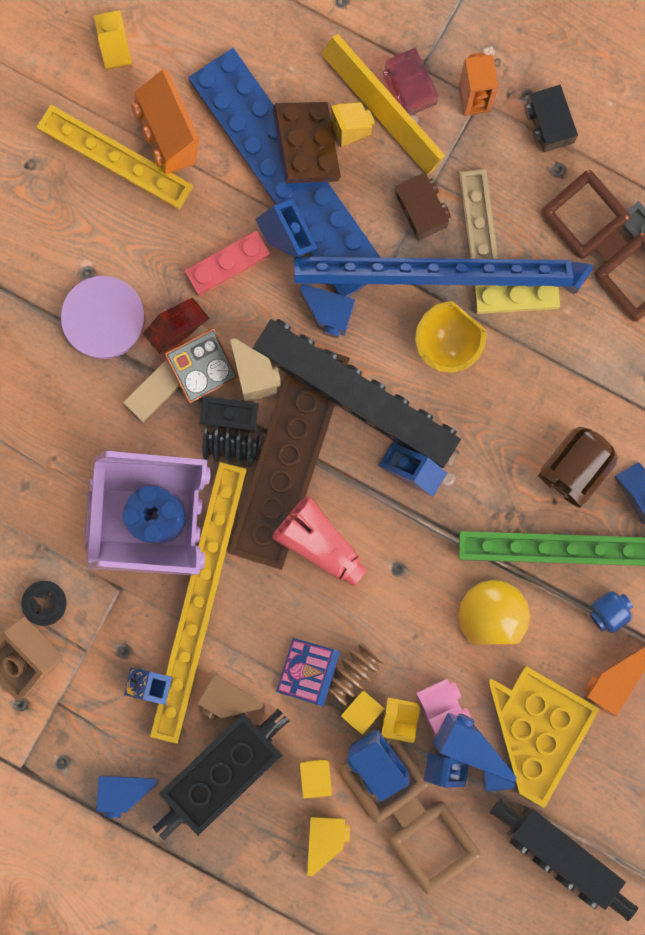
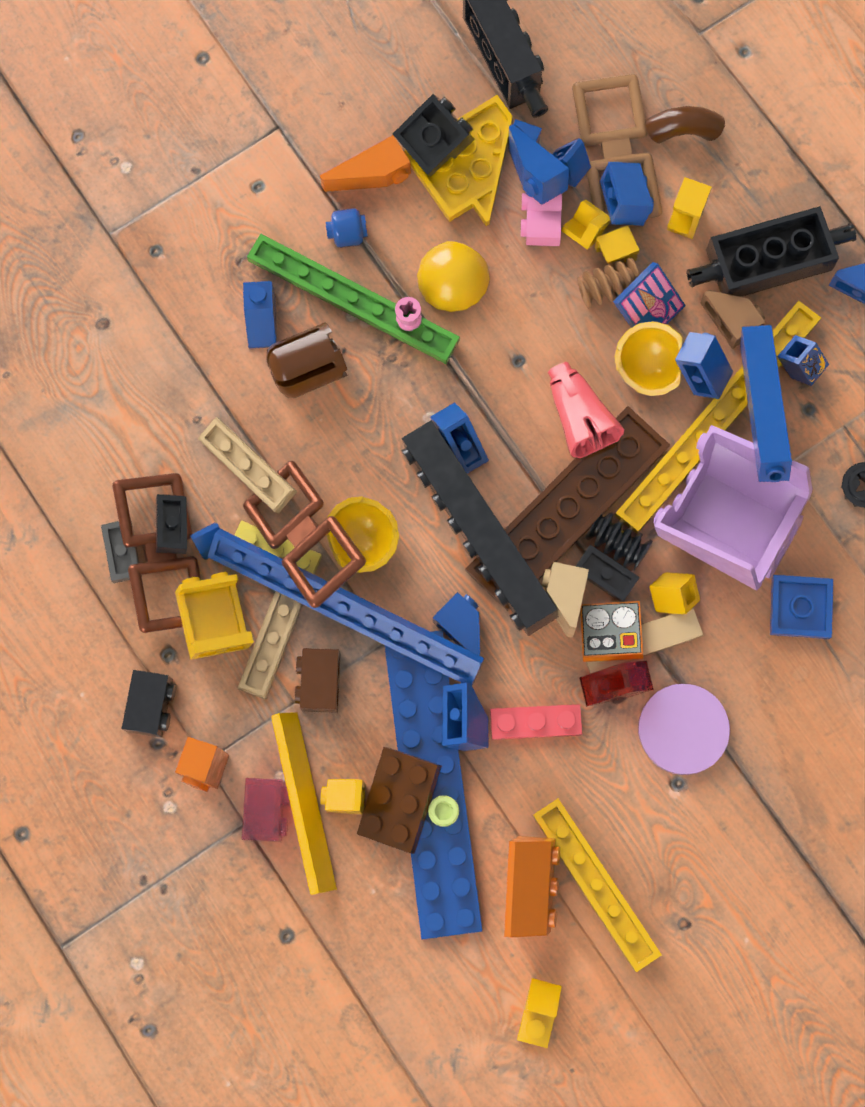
camera: 145 degrees left, 5 degrees down
(51, 467) = (801, 607): none -> blue plate
(140, 507) = (739, 500): blue brick -> none
(161, 612) = (765, 404): none -> blue brick
(163, 425) = (674, 593): none -> yellow panel
(232, 634) = (704, 365): none -> blue brick
(265, 150) = (443, 811): none -> yellowish green tile
(281, 619) = (648, 356): none -> yellow cylinder
(325, 841) = (704, 157): yellow slope -> none
(358, 865) = (685, 121): none -> reddish brown cylinder
(498, 310) = (304, 535): none -> copper bar
(518, 544) = (402, 308): none -> bright pink bush
(537, 212) = (212, 616): none -> yellow panel
(579, 733) = (434, 134): none -> black plate
(580, 353) = (247, 465): none -> tan tile
(615, 269) = (171, 524): none -> black plate

